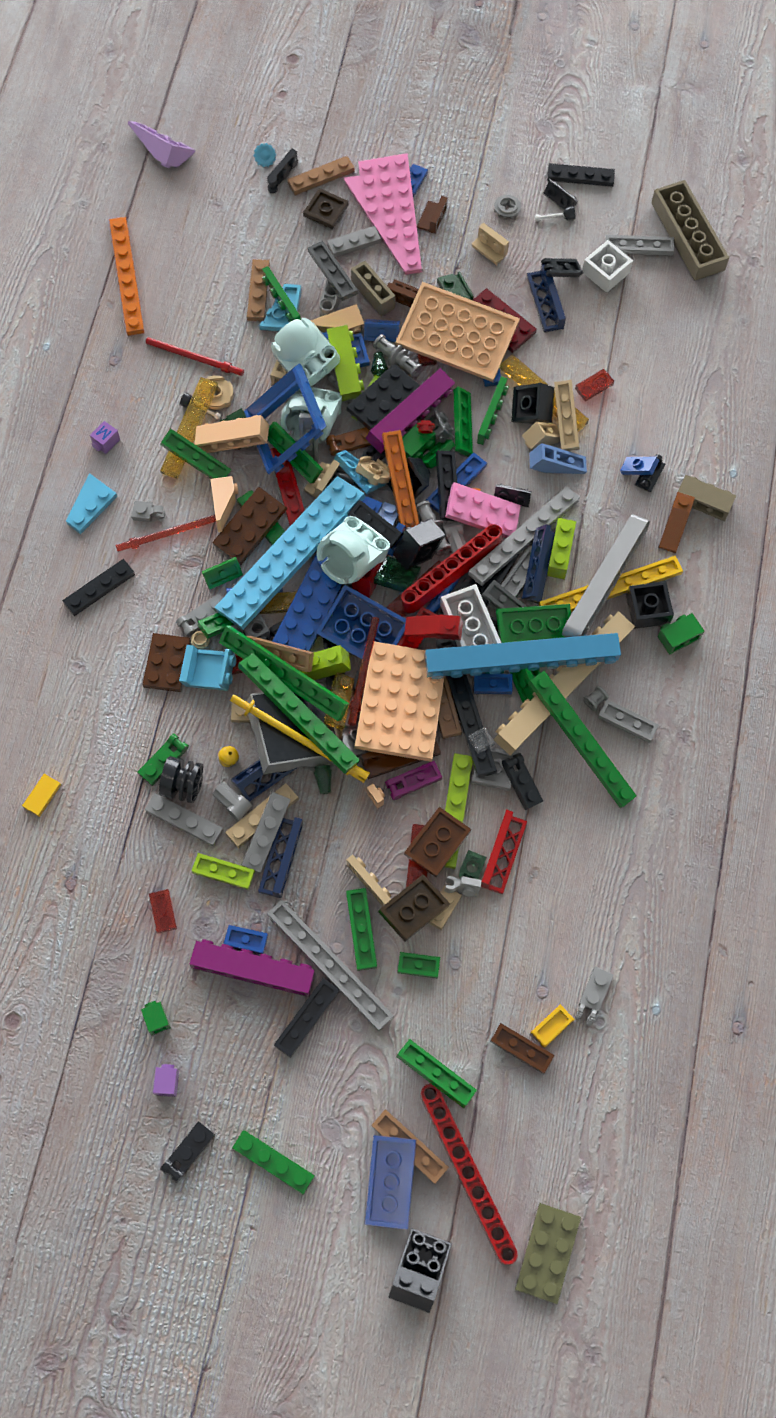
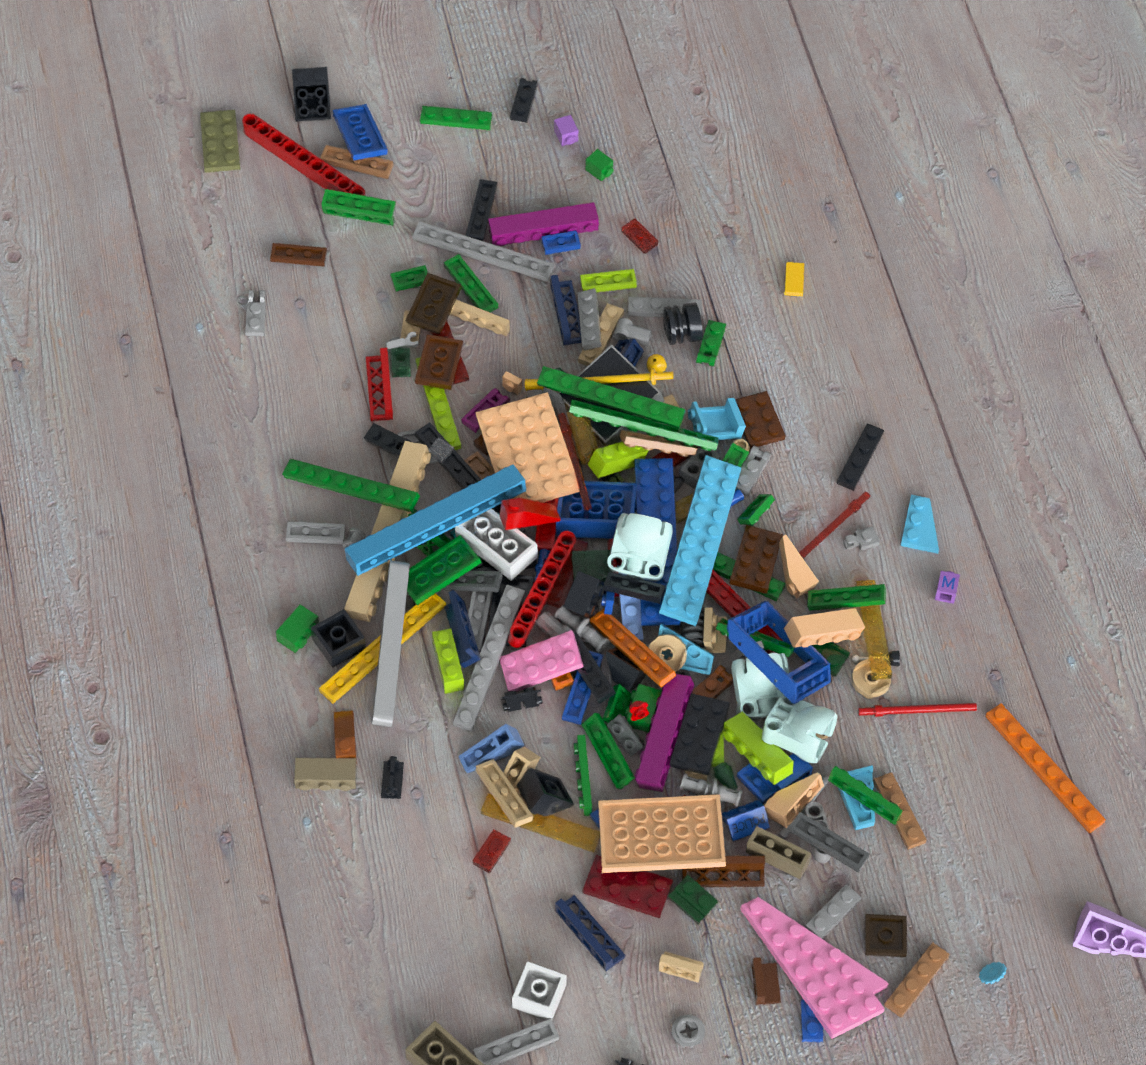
camera: 155 degrees right, 10 degrees down
(282, 170) = (960, 958): black plate -> none
(552, 1026) = (280, 281): yellow tile -> none
(561, 267) = (588, 965): black hinge -> none
(568, 214) = (614, 1051): hinge -> none
(639, 465) = (406, 774): plate -> none

